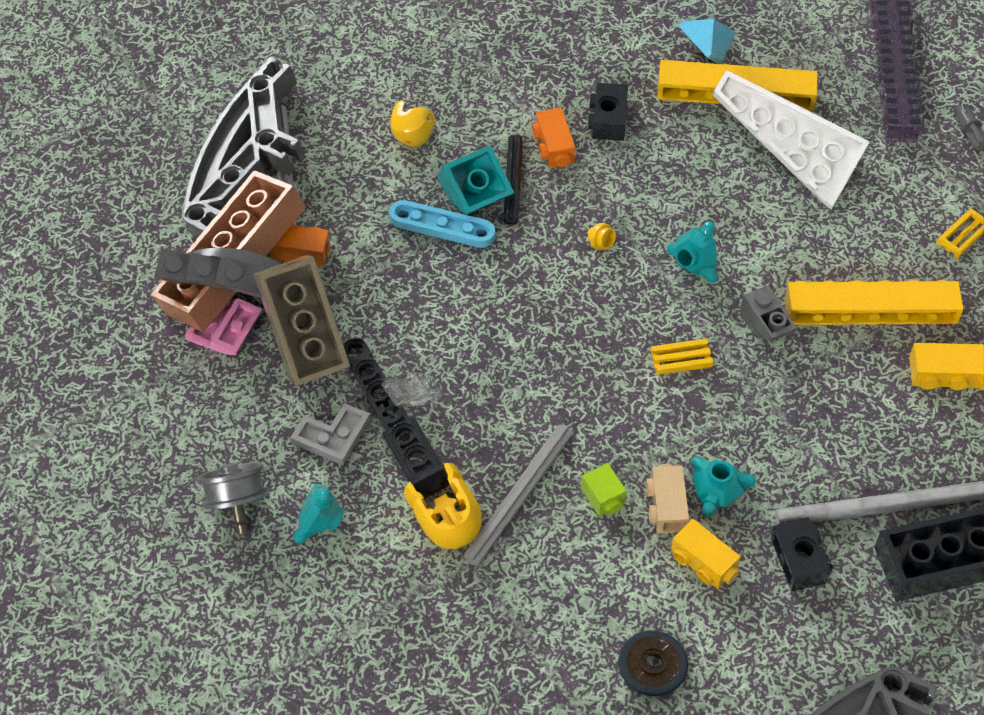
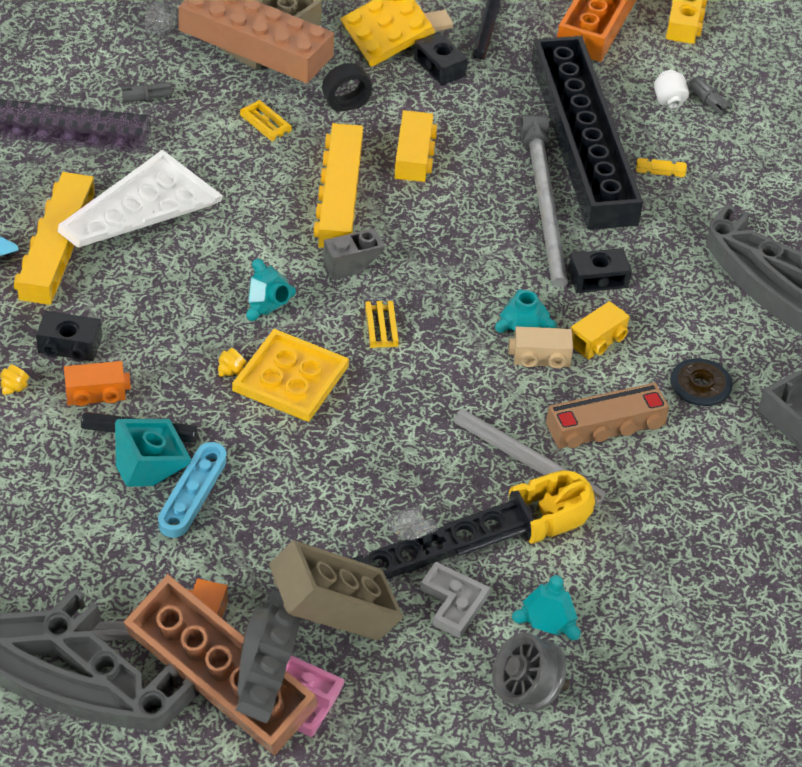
camera: 90 degrees left, 10 degrees down
(411, 126) = (55, 505): yellow helmet -> none
(554, 83) = (13, 380): none -> yellow plate
(580, 563) = (607, 415): none -> medium nougat brick
(594, 284) = (290, 375): none -> yellow plate
(604, 490) = (531, 390): lime brick -> none

